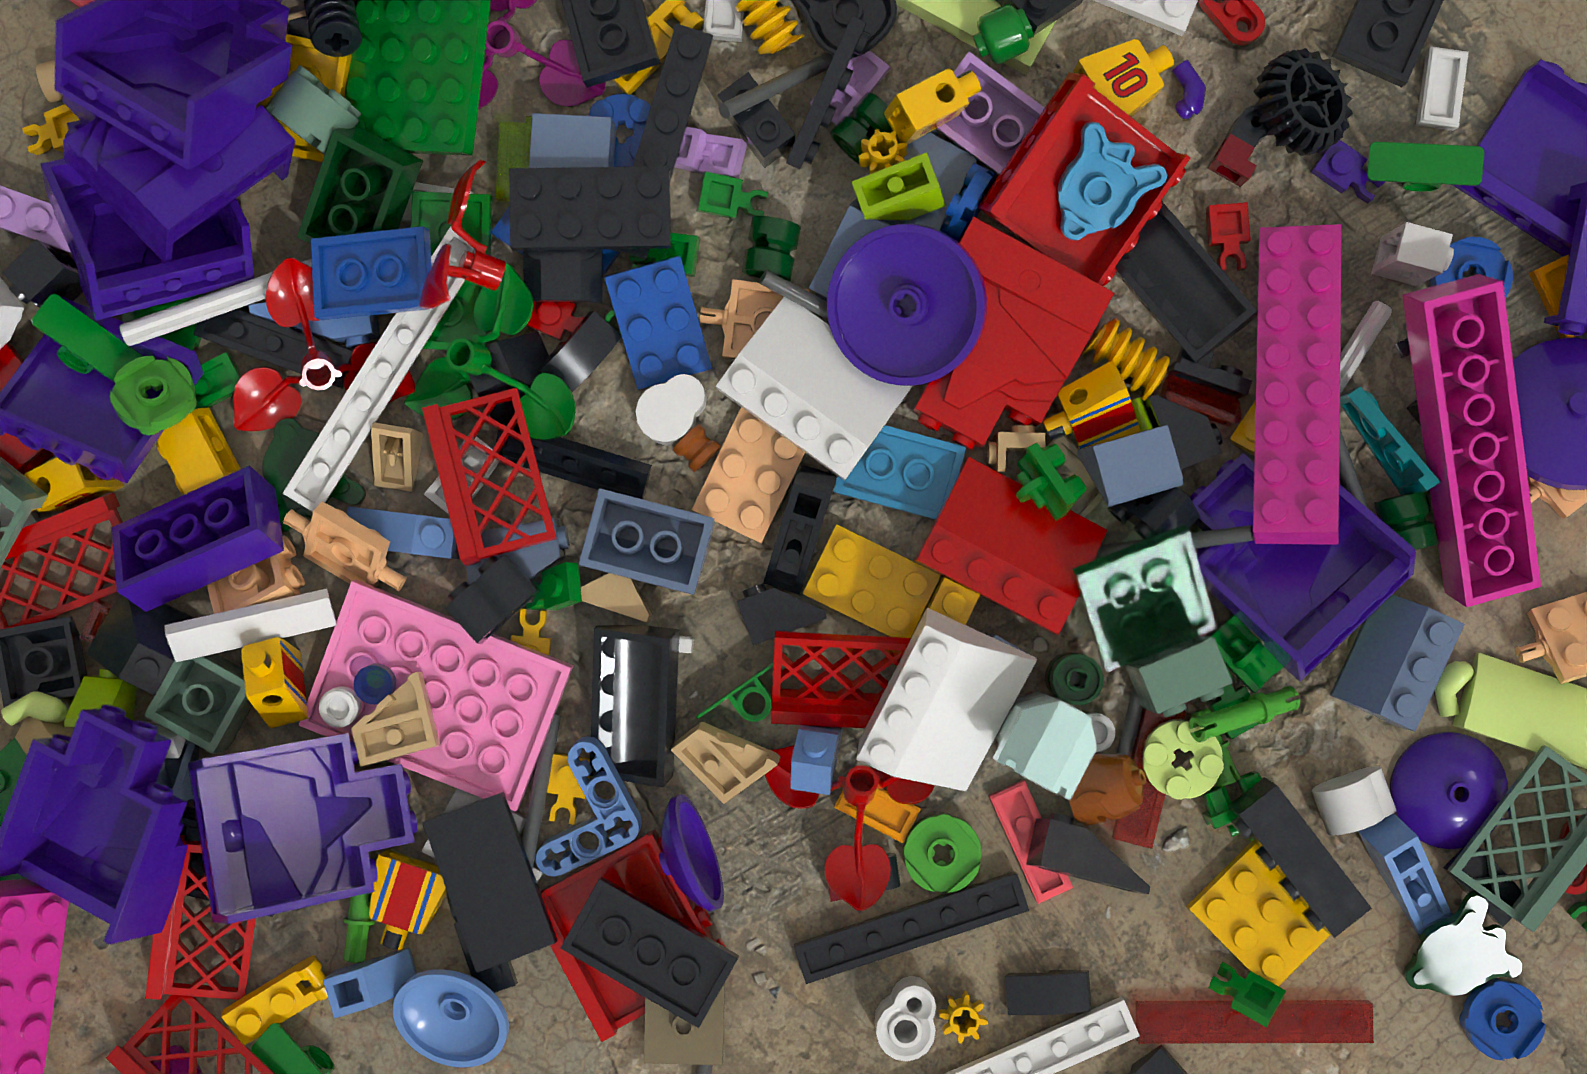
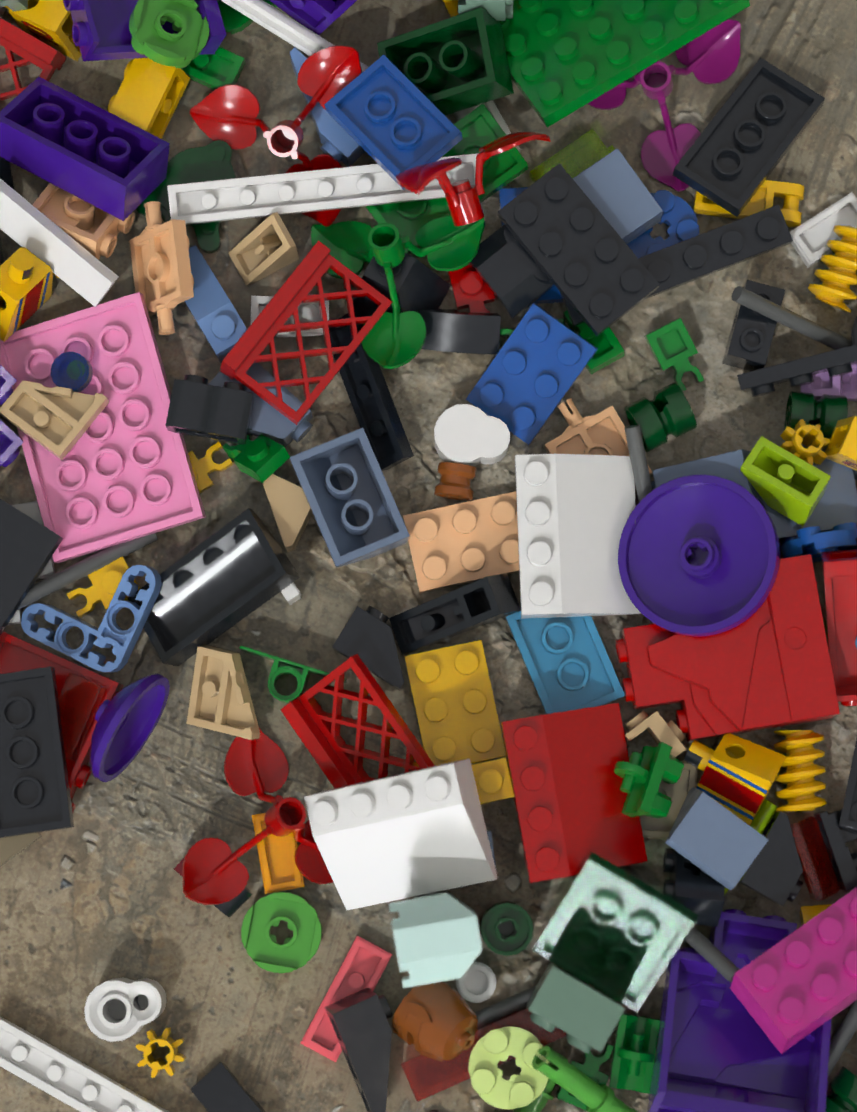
camera: 55 degrees right, 5 degrees down
(267, 341) = (277, 83): black plate -> none
(339, 706) = (32, 359): white tile -> none
(711, 153) = (699, 312): lavender slope -> none
(815, 758) = (279, 765): medium blue slope -> none
(911, 927) = (202, 953): black plate -> none

